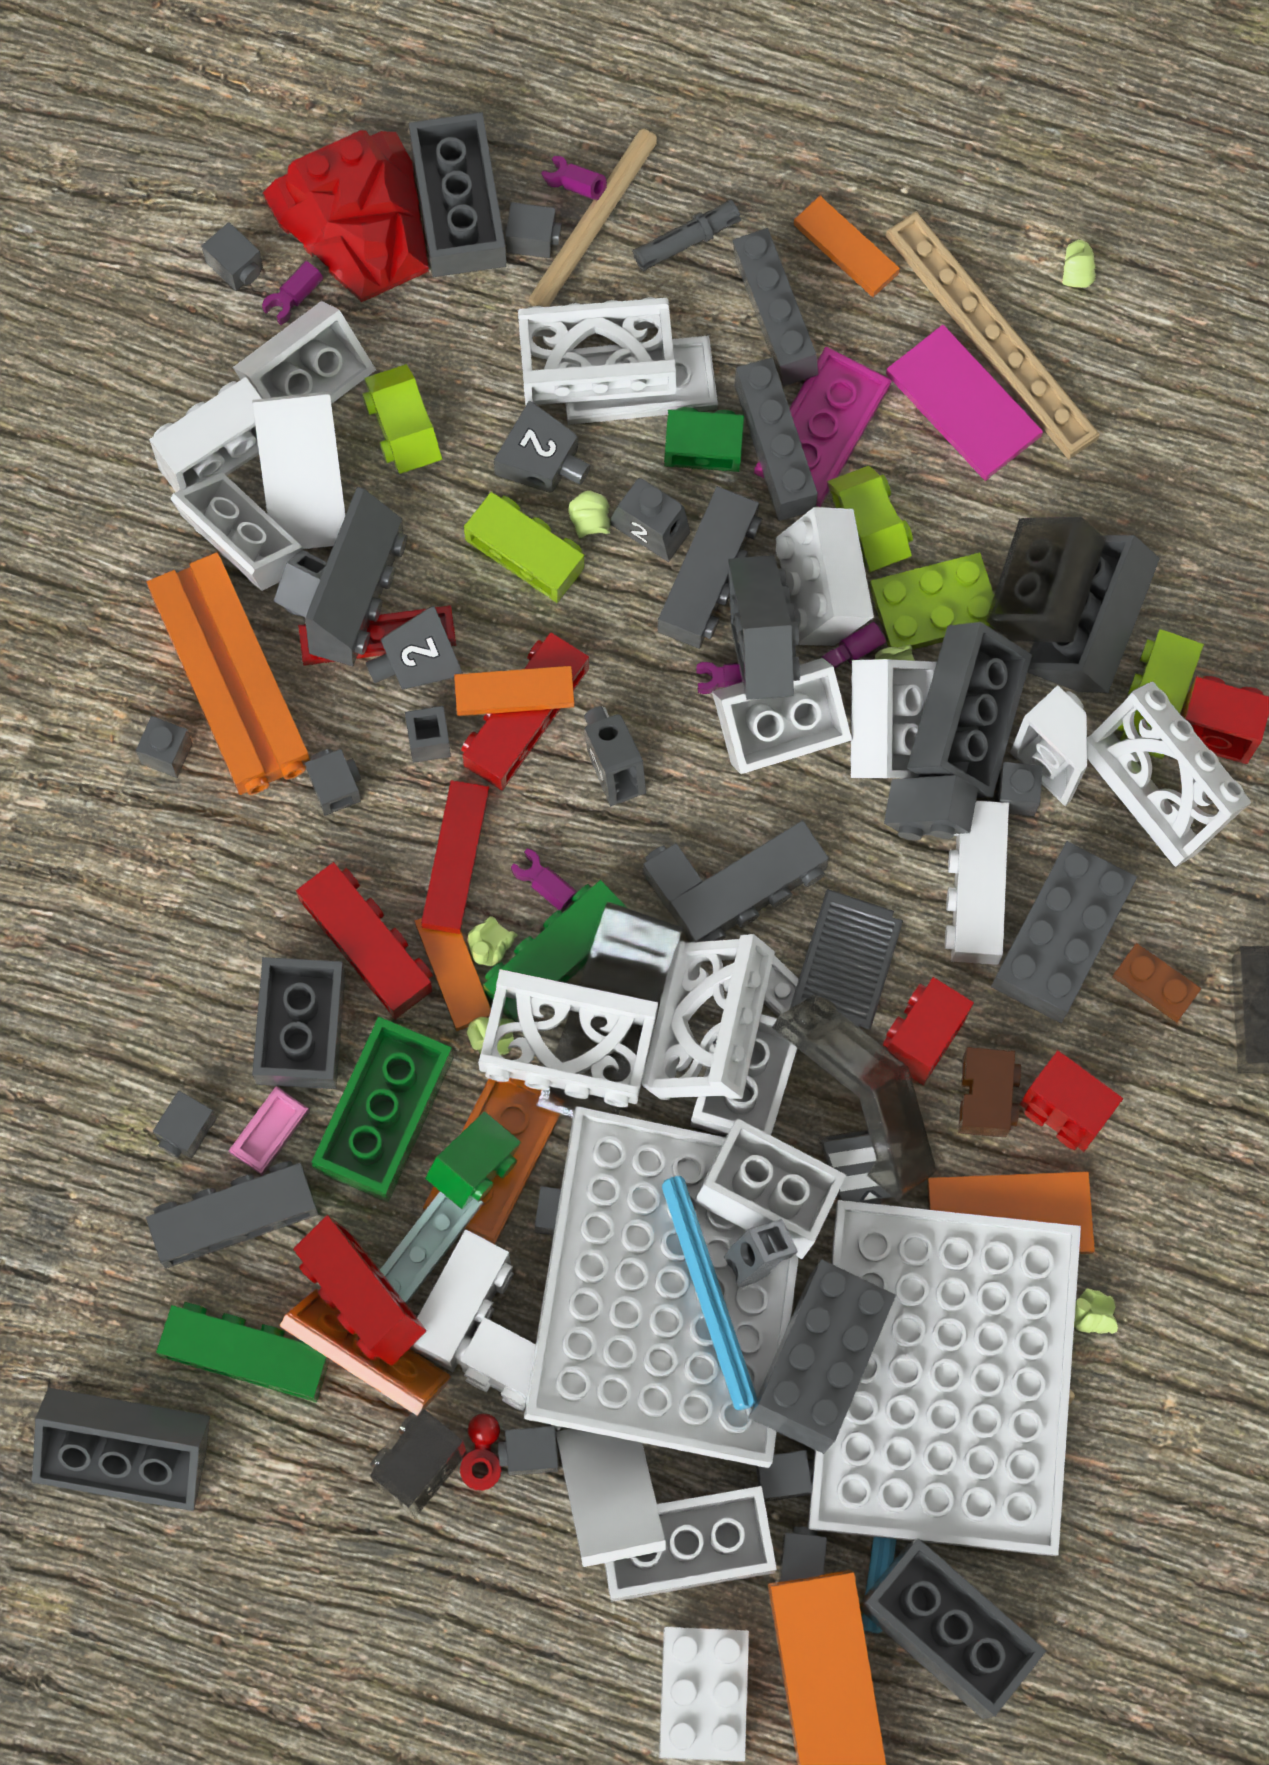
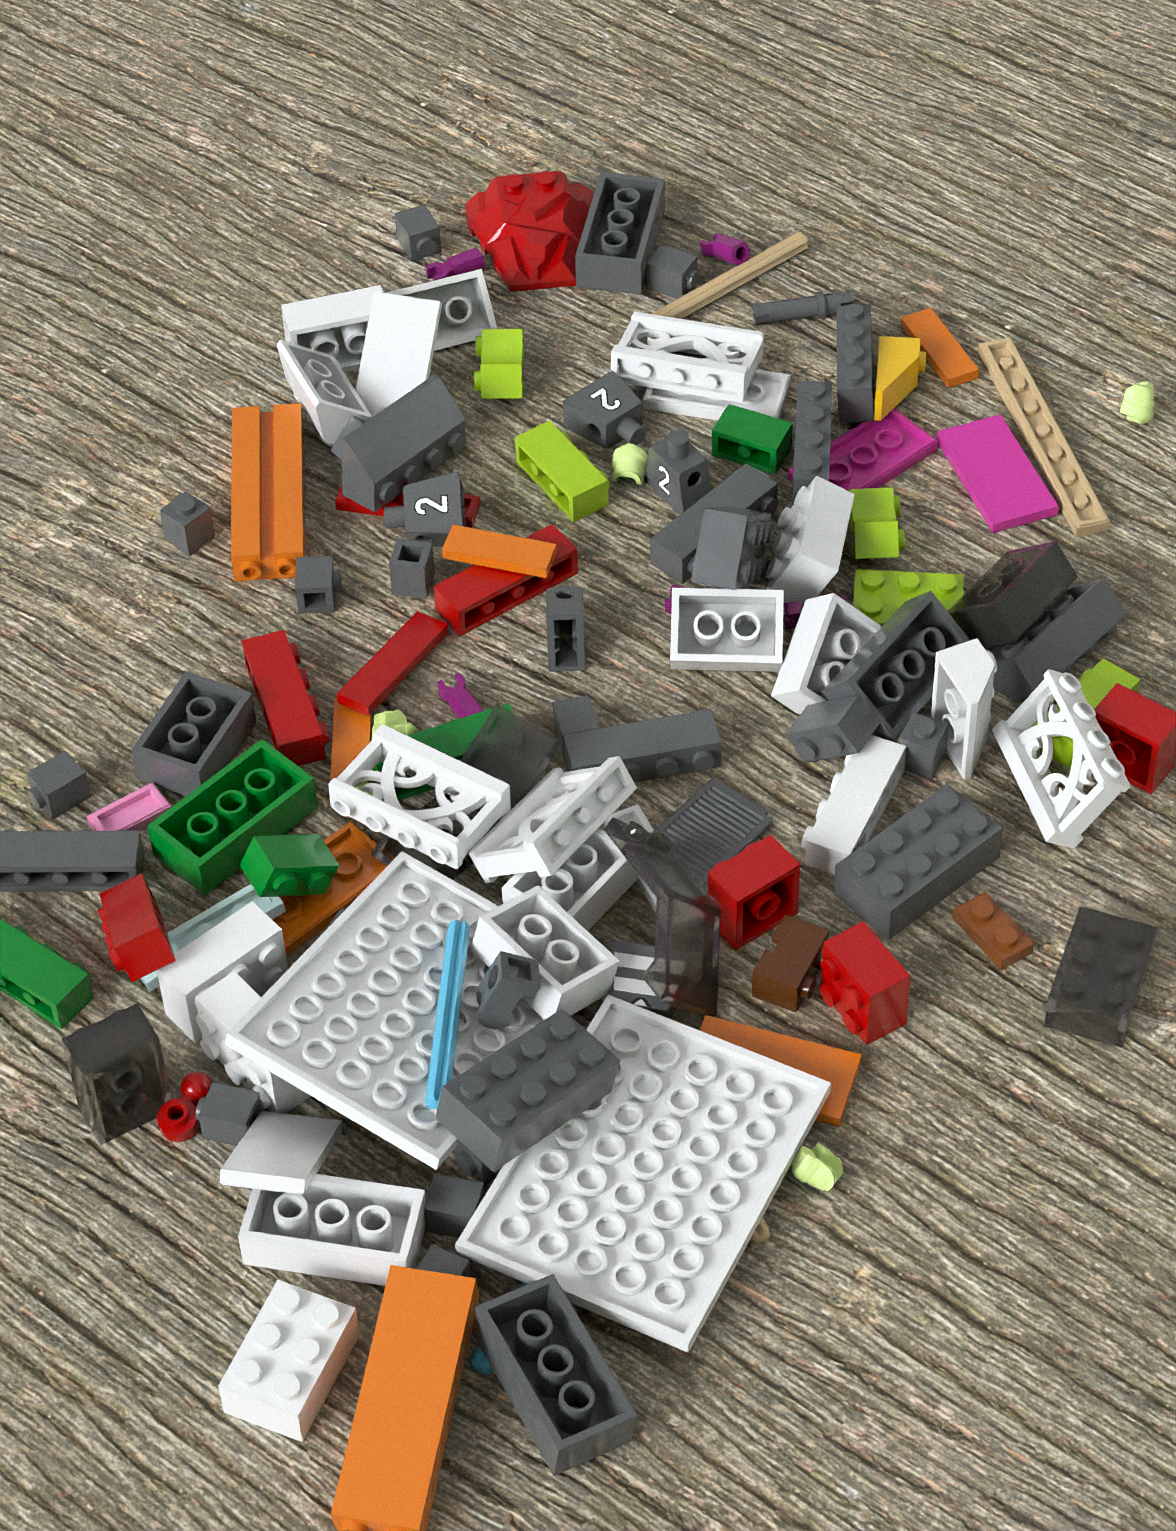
camera: 25 degrees right, 25 degrees down
(409, 1381) = (93, 956): orange tile -> none
(819, 296) = (896, 371): none -> yellow slope

